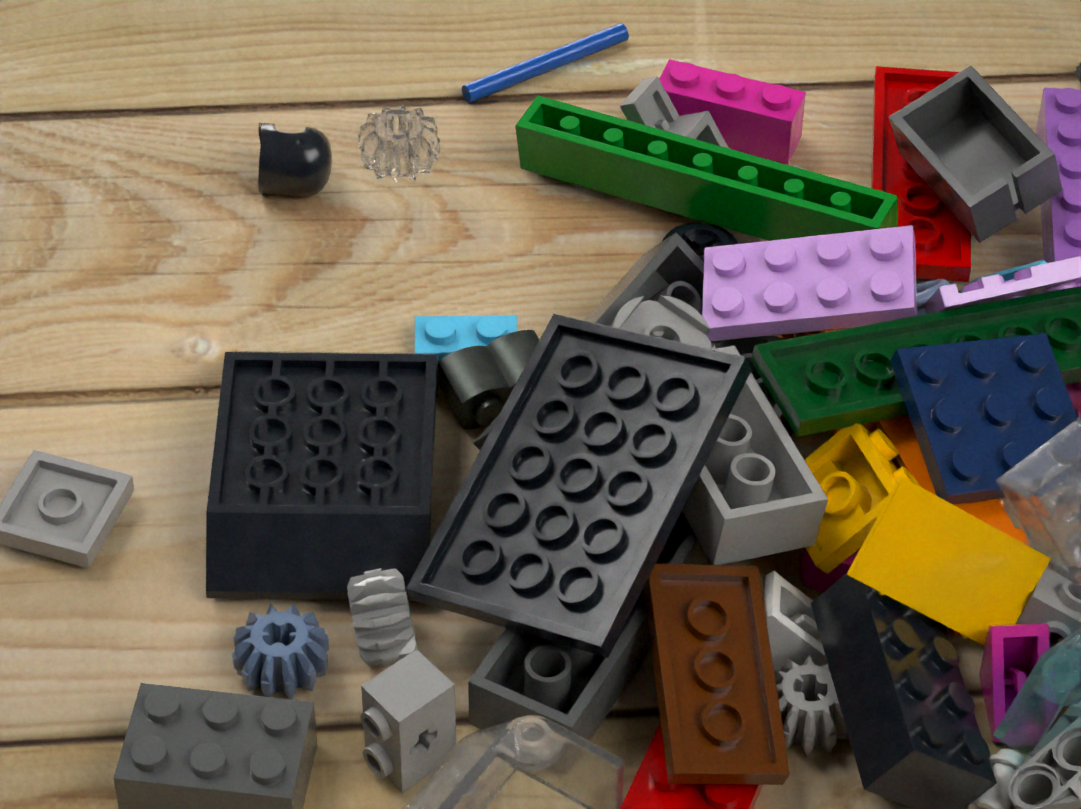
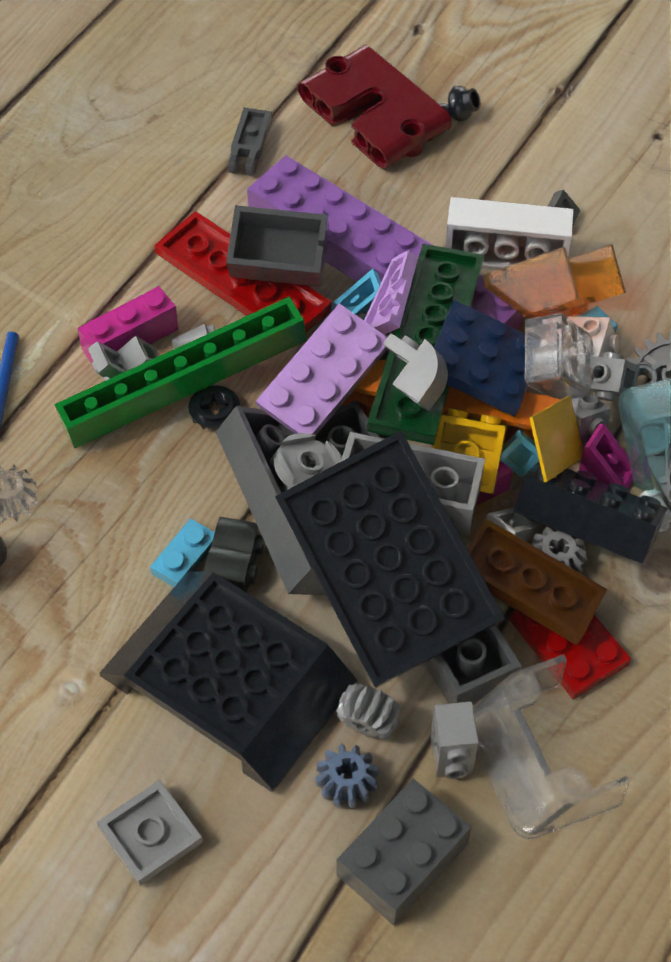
camera: 55 degrees left, 10 degrees up
(869, 344) = (424, 373): none -> light grey brick

